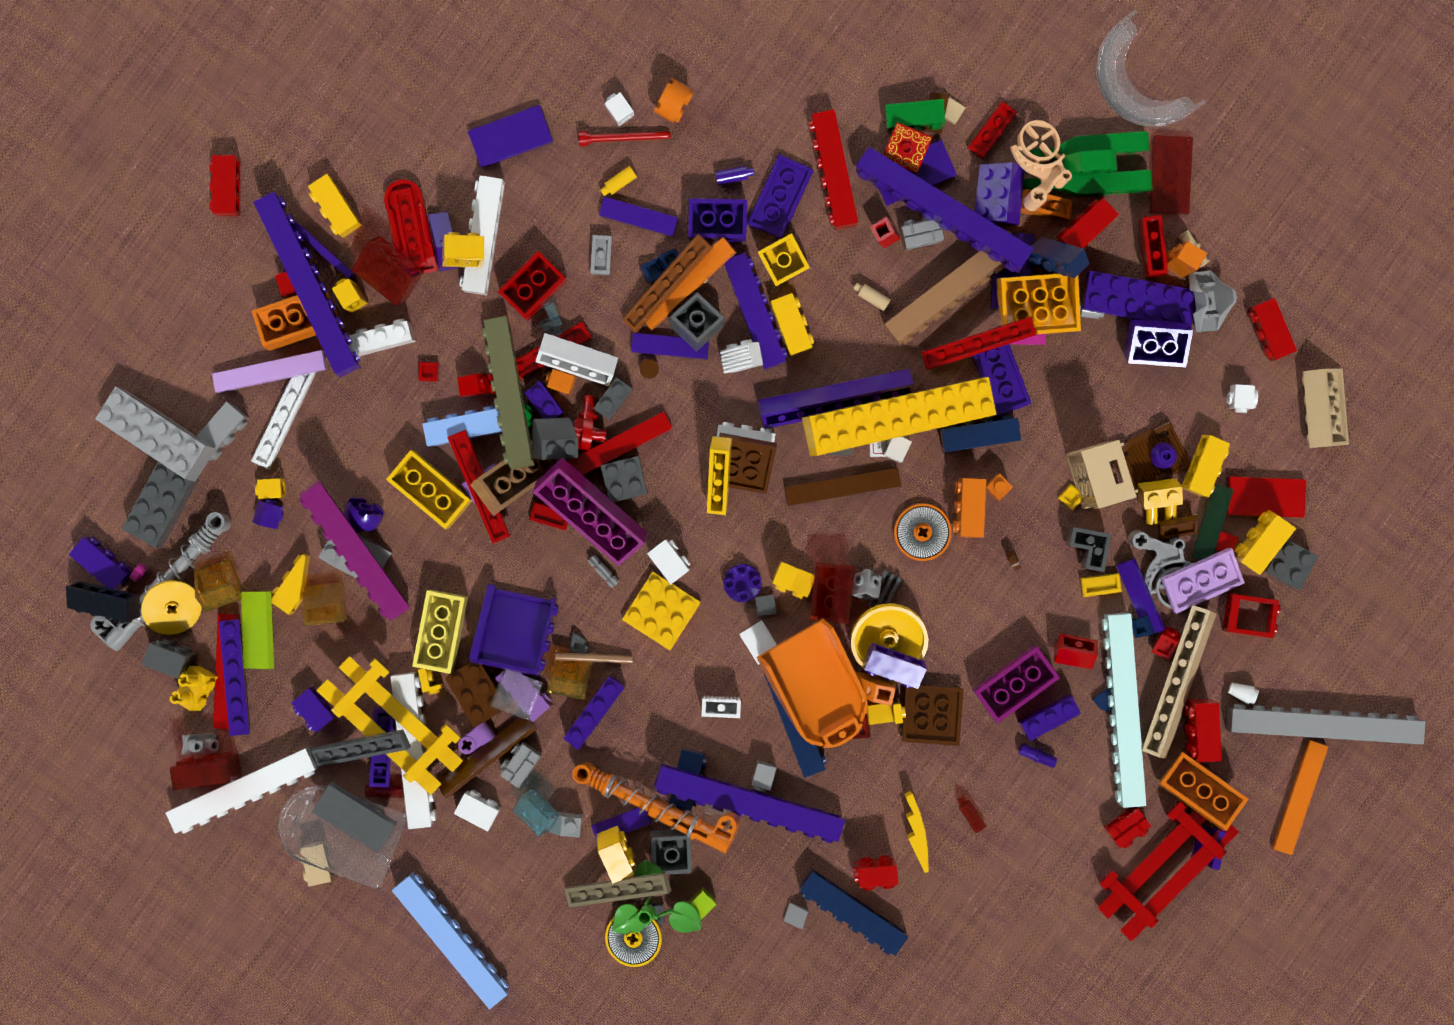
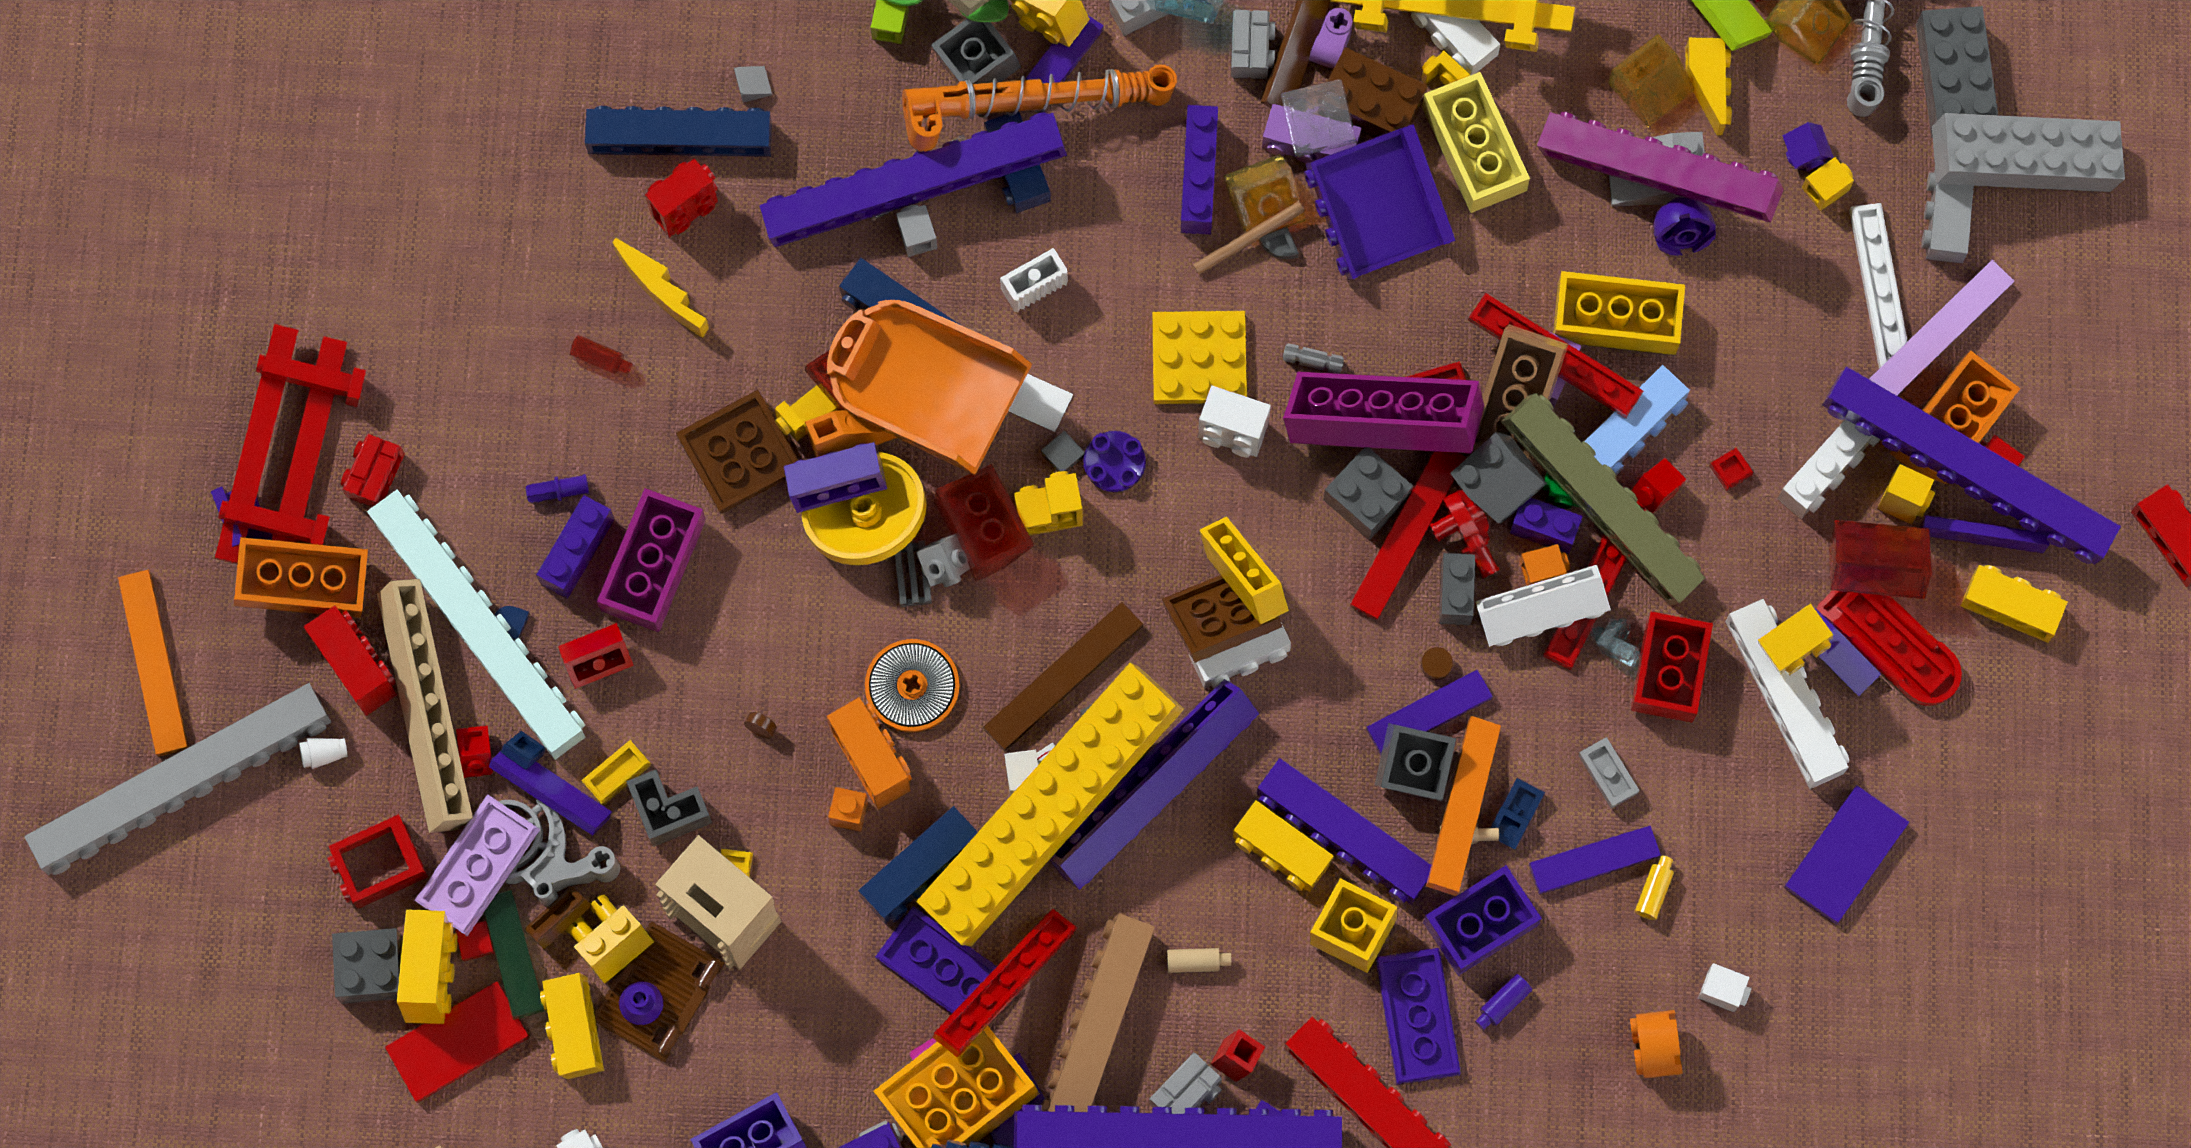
camera: 150 degrees right, 15 degrees down
(586, 138) = (1741, 918): red piece -> none
(667, 283) = (1491, 787): dark orange tile -> none
(741, 357) = (1322, 754): white brick -> none

